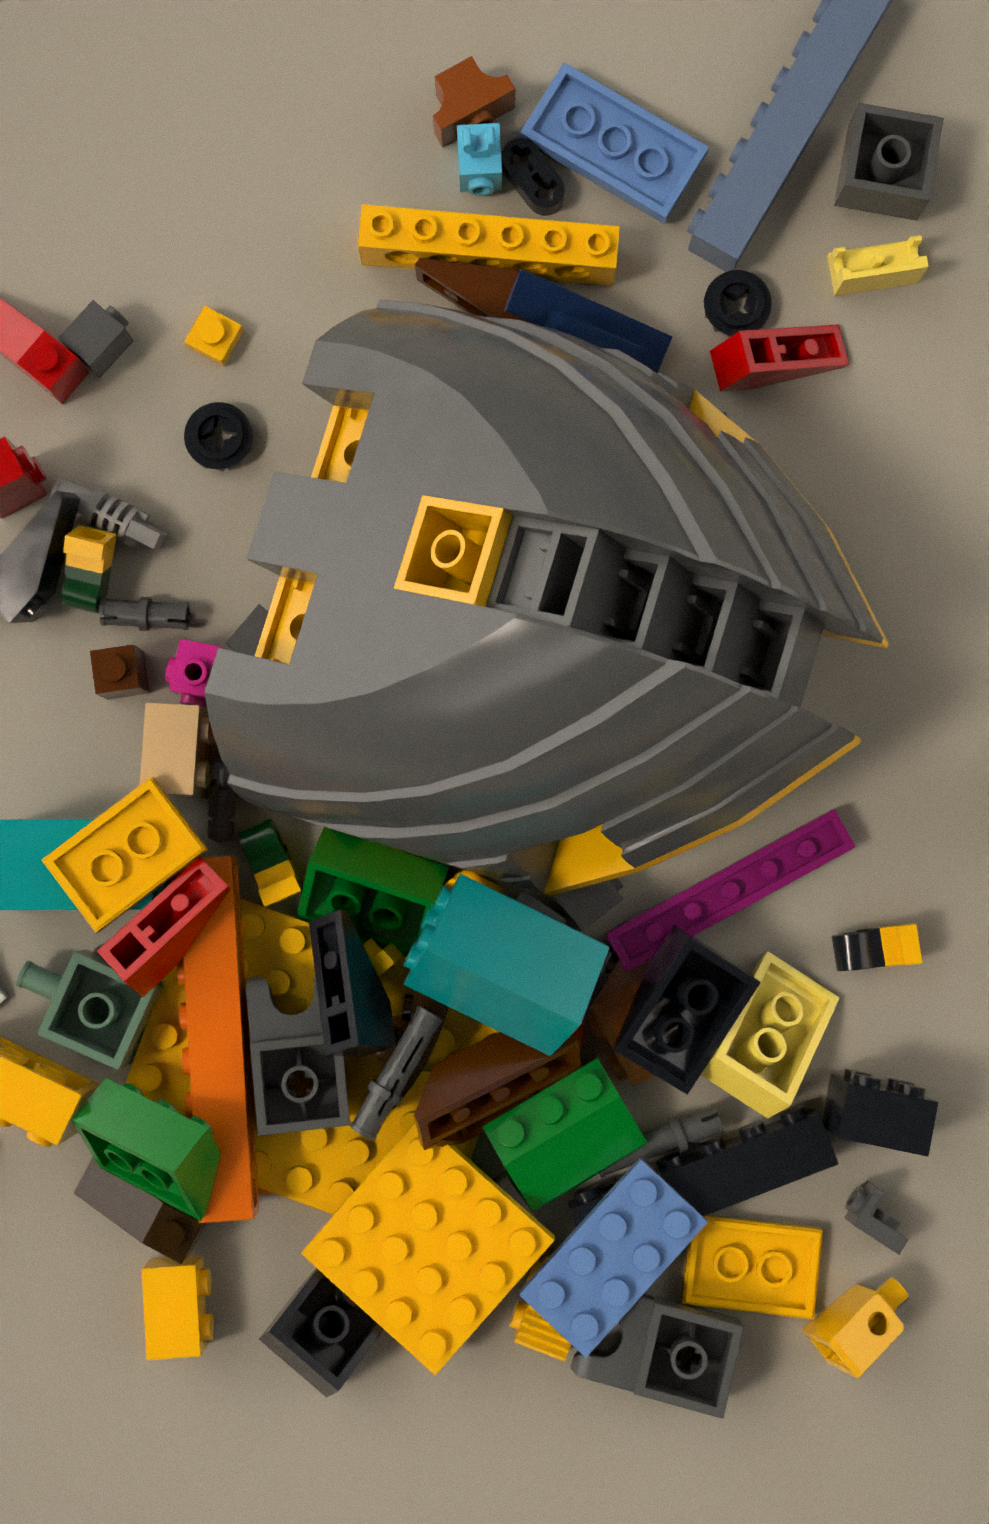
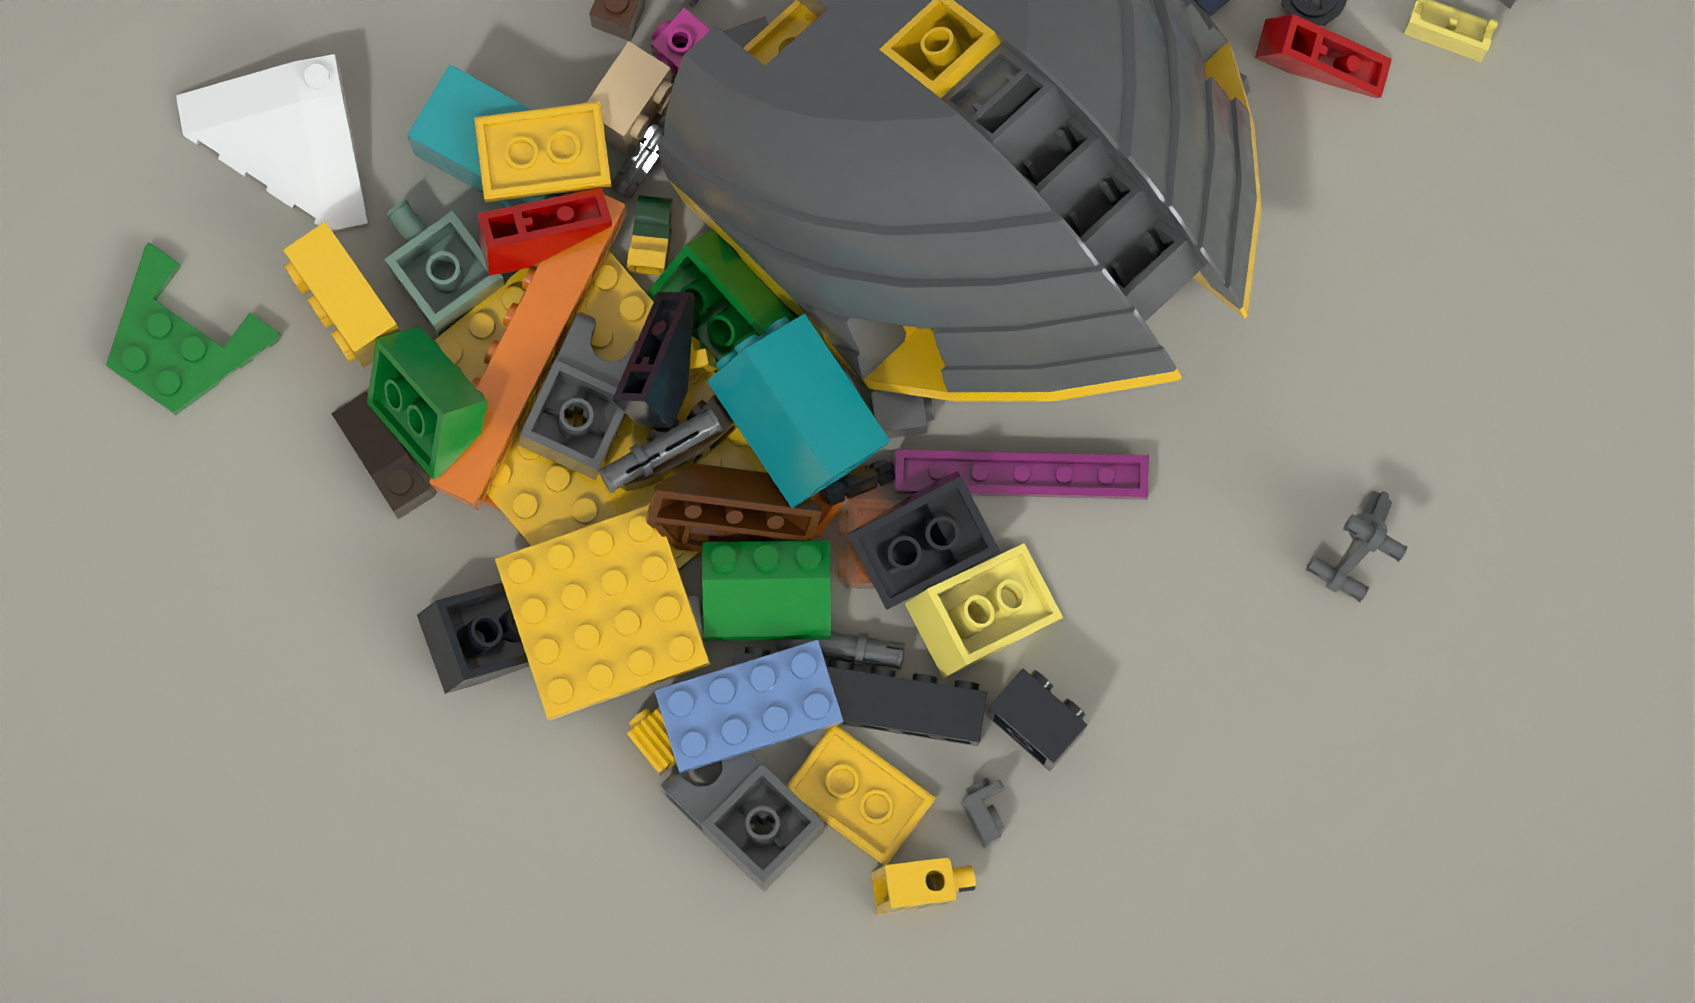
camera: 30 degrees right, 5 degrees down
(176, 1308) = (364, 551): yellow brick -> none
(877, 947) = (1116, 590): leg -> none

